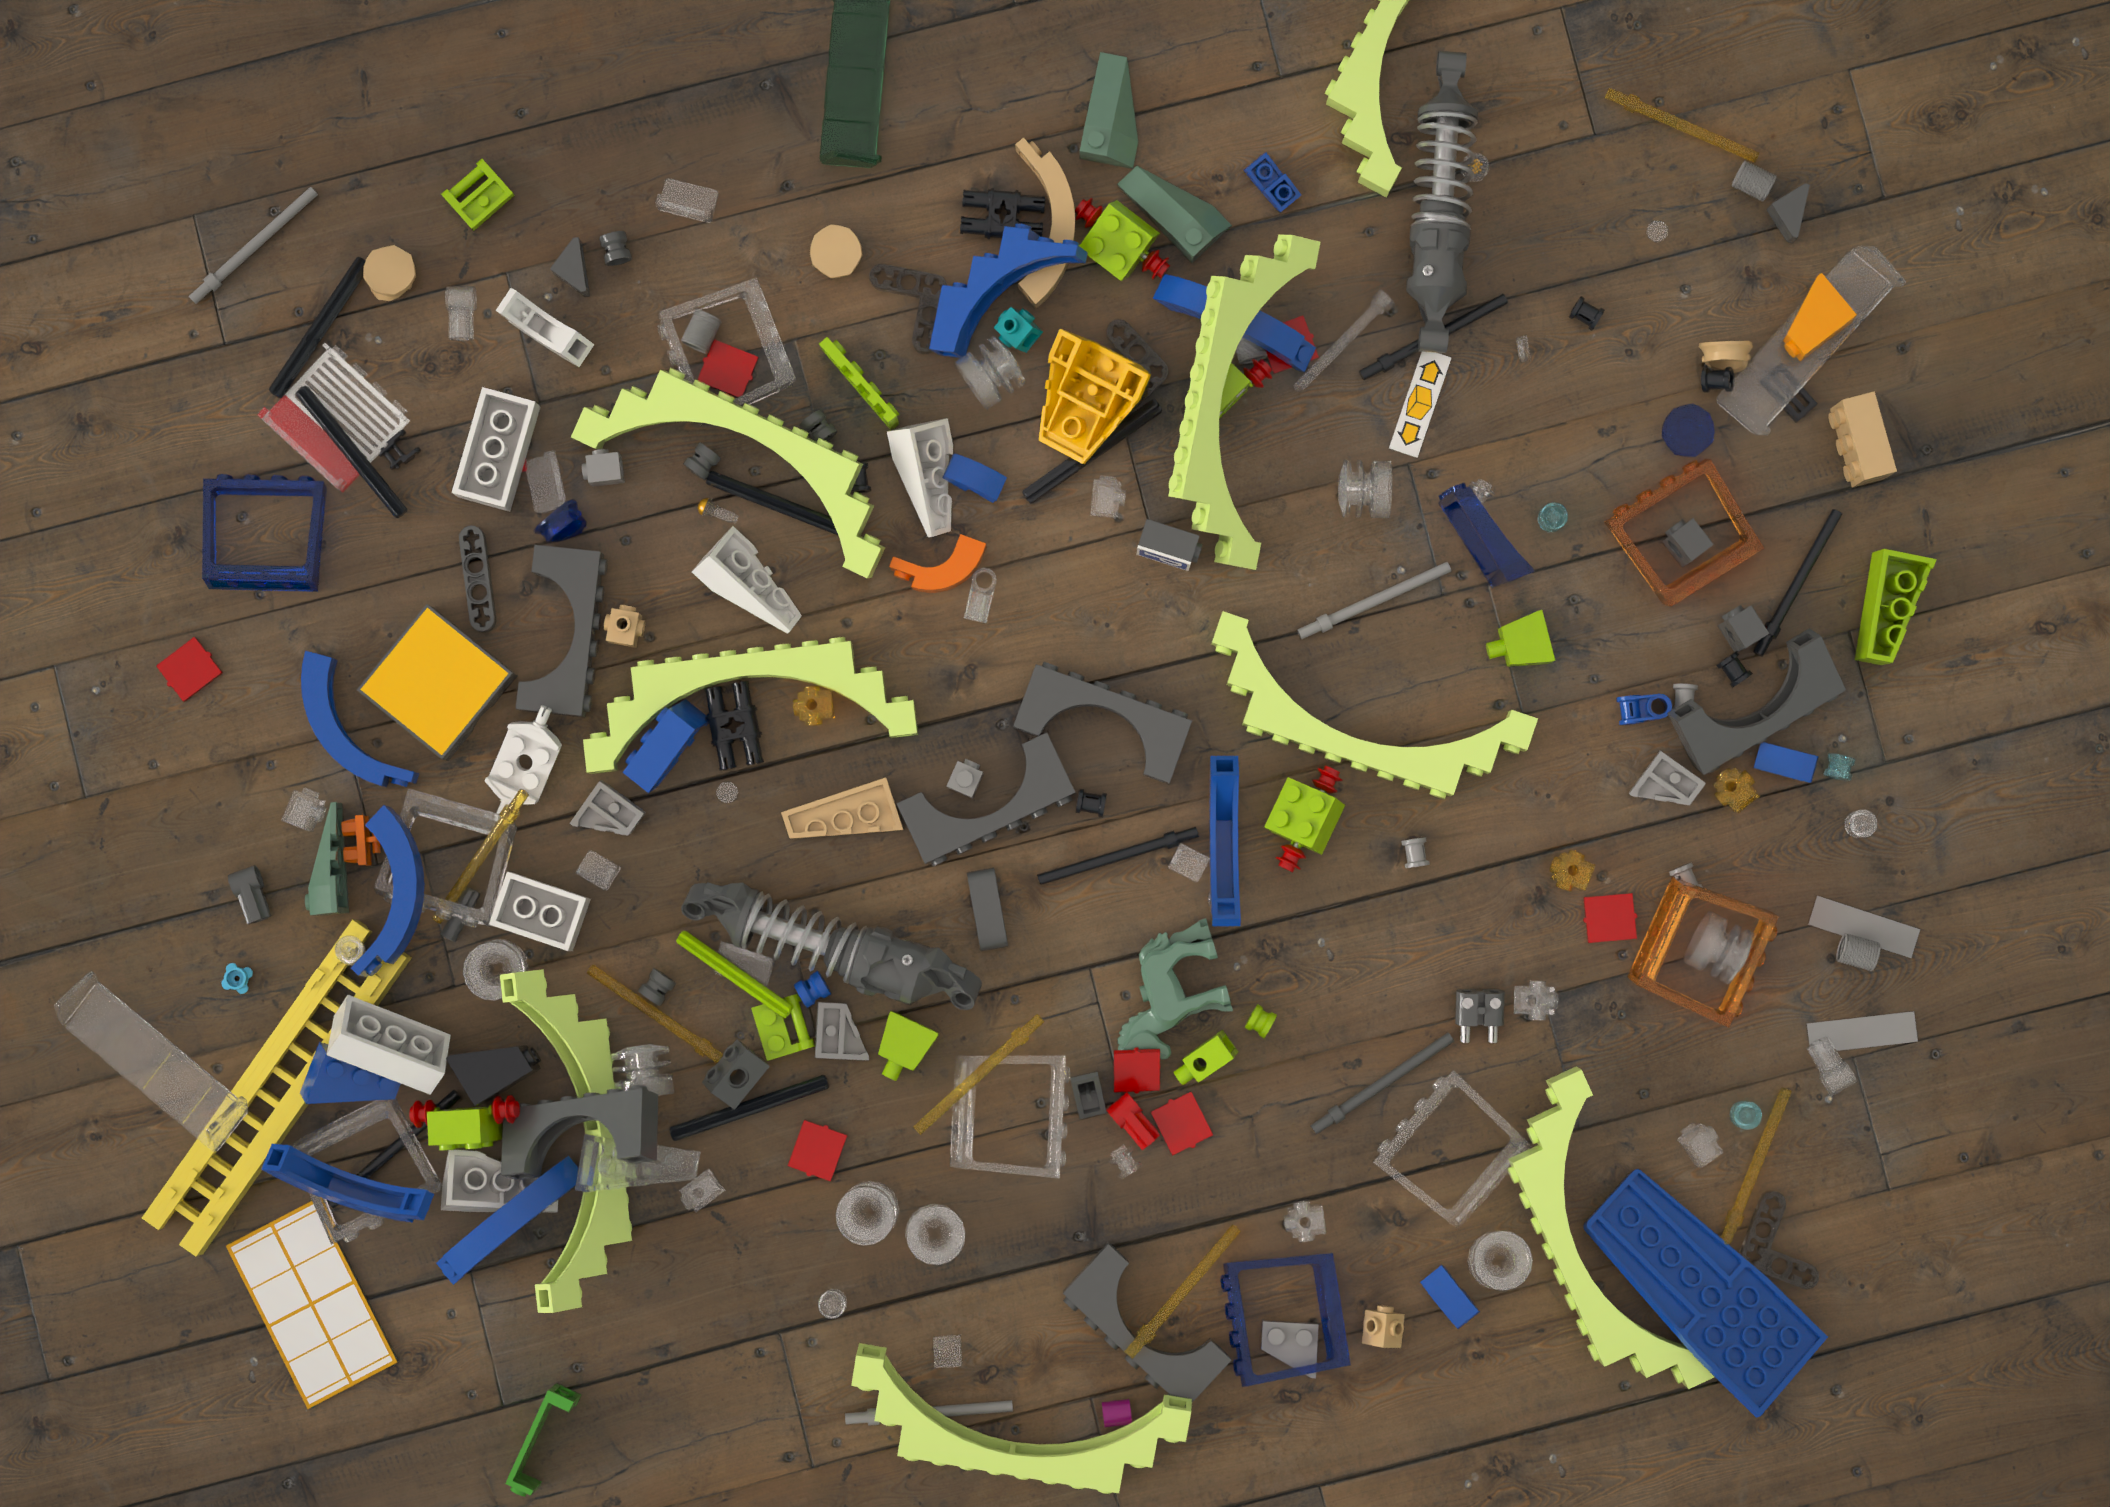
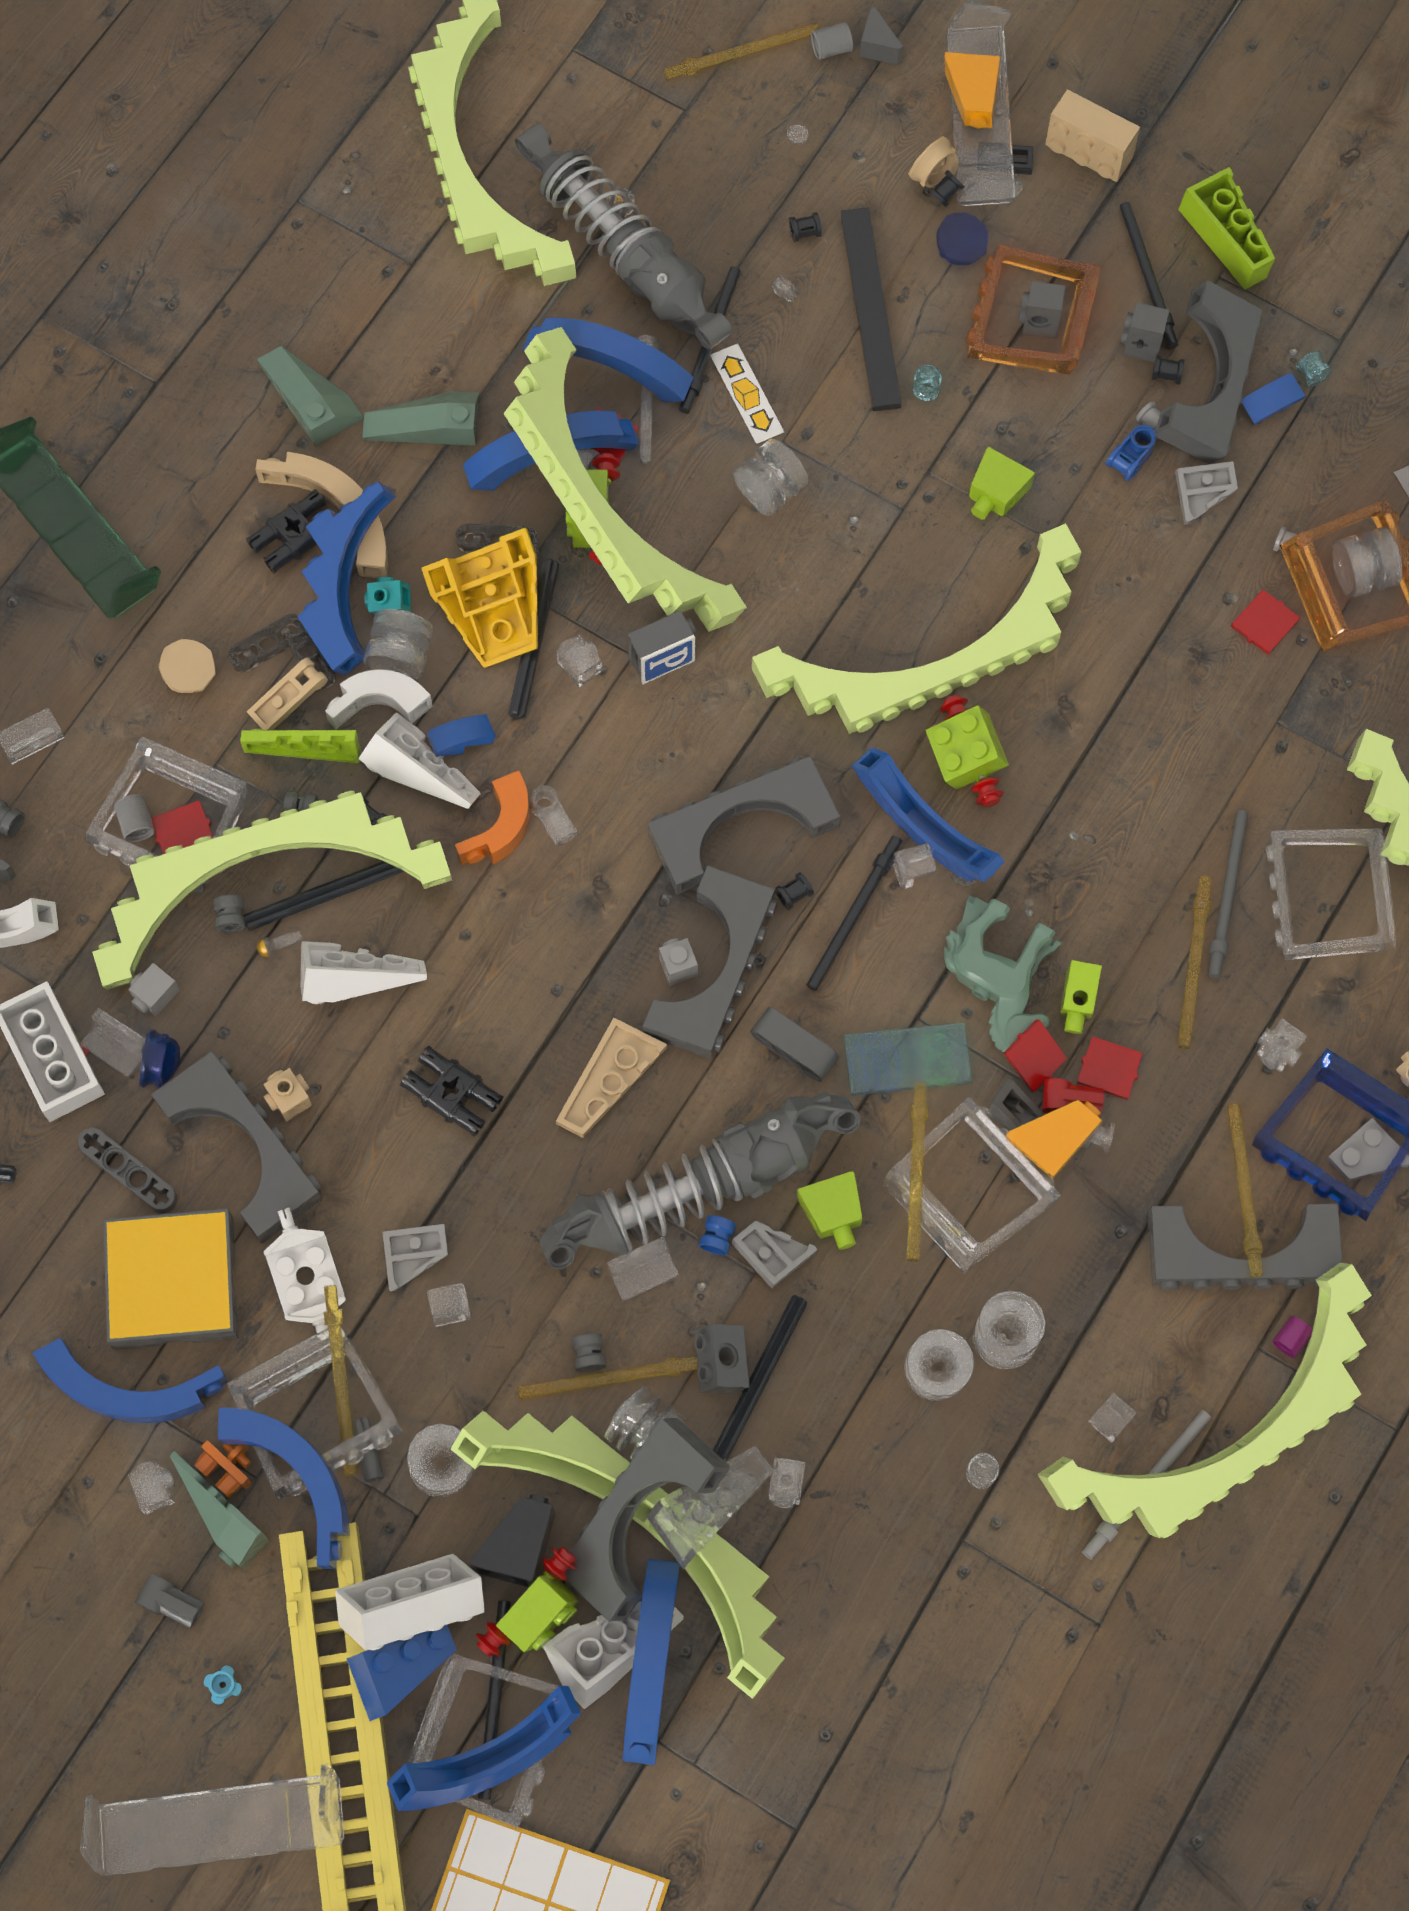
camera: 50 degrees left, 15 degrees down
(349, 950) = (301, 1556): clear wheel -> none
(539, 911) = (432, 1380): white brick -> none
(559, 1397) = (831, 1767): bright green panel -> none
(664, 744) = (409, 1156): blue wedge -> none
(669, 682) = (477, 980): yellowish green arch -> none
(727, 792) = (495, 1150): clear piece -> none
(734, 974) = (642, 1281): lime axle -> none
(774, 1031) = (718, 1299): lime plate -> none
(817, 1150) = (847, 1362): red piece -> none
(824, 707) = (502, 1014): clear yellow brick -> none
(882, 337) = (287, 695): none -> tan plate
(952, 389) = (381, 688): none -> white arch
(1054, 989) = (906, 1056): none -> clear light blue tile
(1090, 1140) = (1056, 1136): none -> light orange slope
(1120, 240) = (406, 466): lime brick -> none
(1260, 1021) = (1090, 931): lime wheel -> none
(1272, 182) = (477, 338): blue slope -> none
(1325, 622) = (837, 601): light grey bar -> none
(1346, 290) = (624, 354): none -> blue arch
(1355, 1074) = (1201, 907): none -> clear yellow bar
(1415, 852) = (1076, 703): light grey bush -> none
(1479, 1008) = (1242, 770): dark grey piece -> none
(1482, 490) = (856, 410): clear wheel -> none
(1482, 537) = (933, 407): clear blue windscreen -> none
(1535, 1000) = (1266, 722): clear brick -> none
(1571, 420) = (870, 309): none -> black tile
(1581, 871) = (1204, 609): clear yellow brick -> none
(1744, 793) = (1258, 446): clear yellow brick -> none
(1860, 823) = (1370, 393): clear wheel -> none

